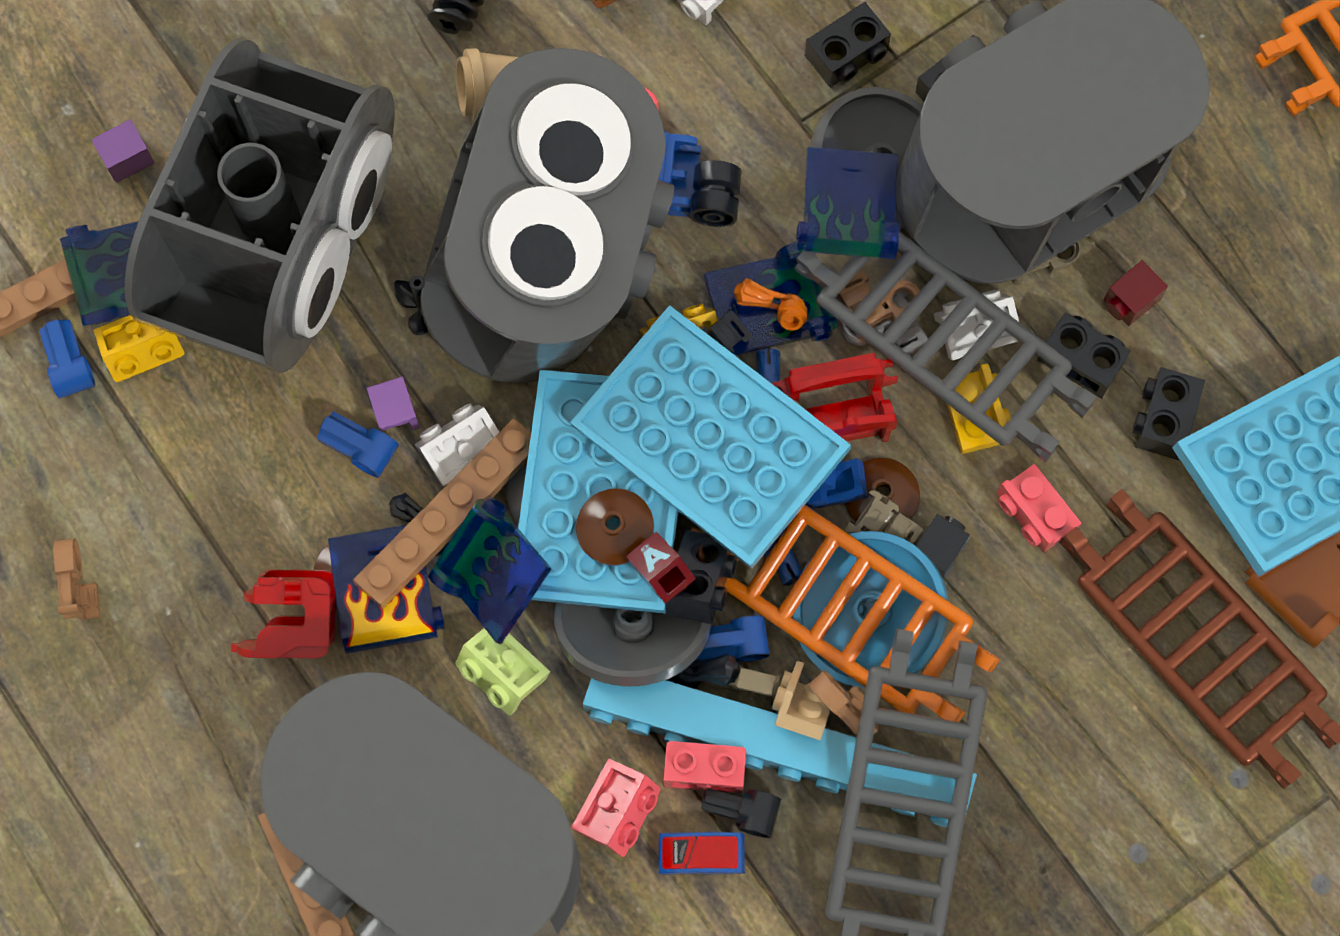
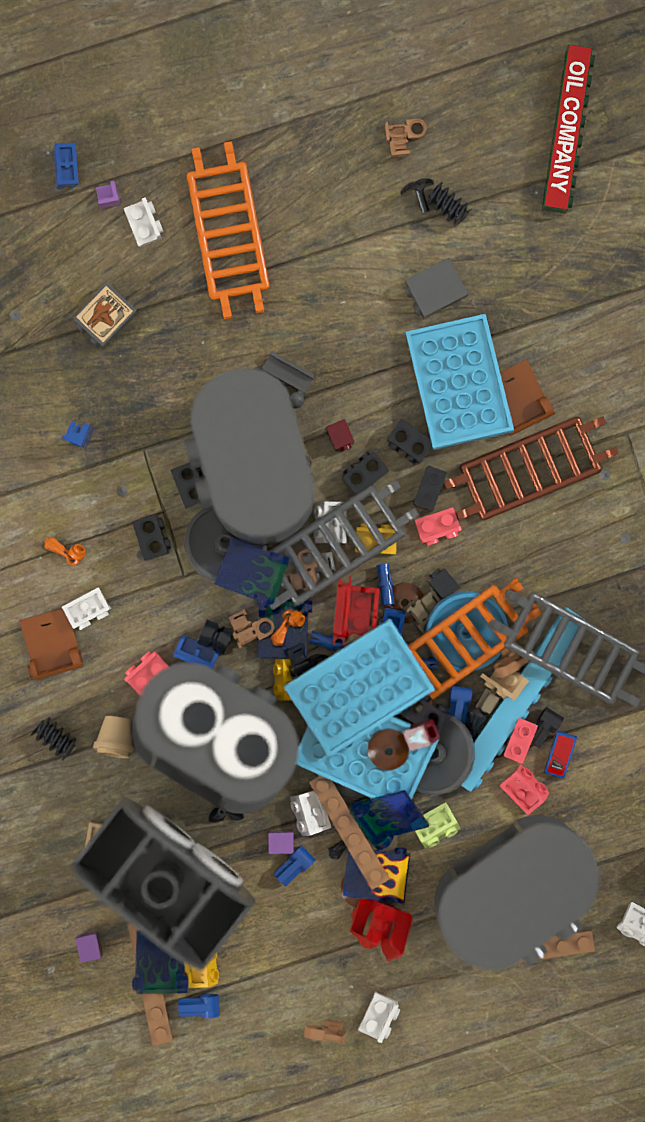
camera: 75 degrees left, 15 degrees up
(126, 673) = (379, 1016): none -> white bracket
(747, 238) = (245, 631): none -> medium nougat piece
(903, 448) = (385, 584): none -> blue pin
(1099, 469) = (429, 488): none -> black brick
(1205, 185) = (289, 374): none -> dark grey gear

